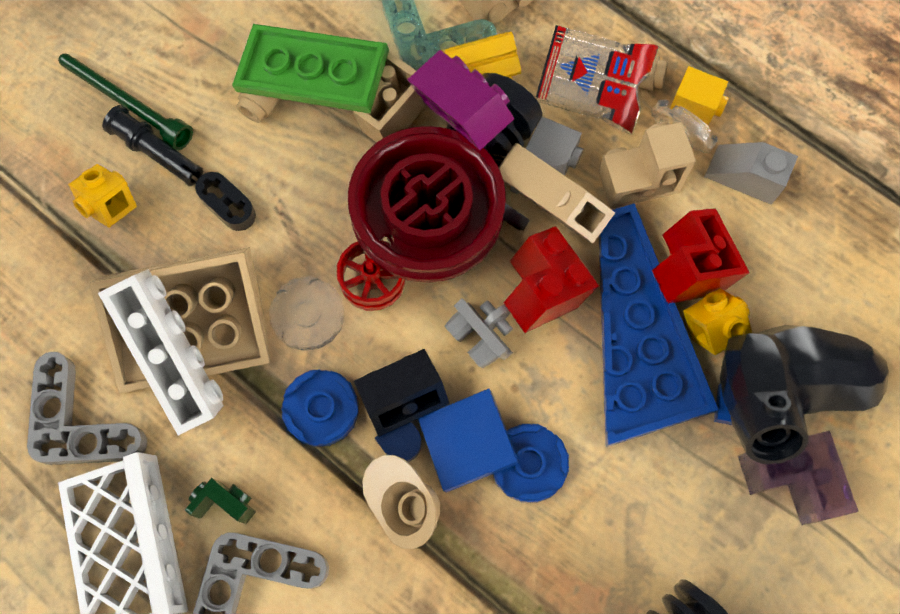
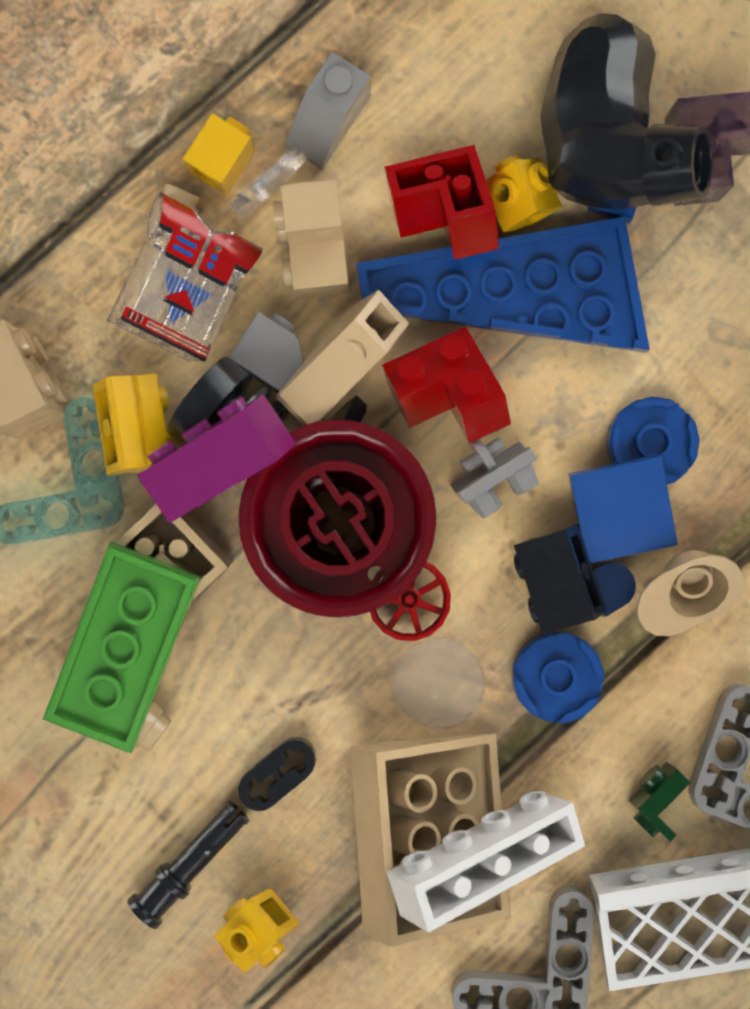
camera: 85 degrees left, 15 degrees up
(173, 131) = (172, 835): dark green piece -> none

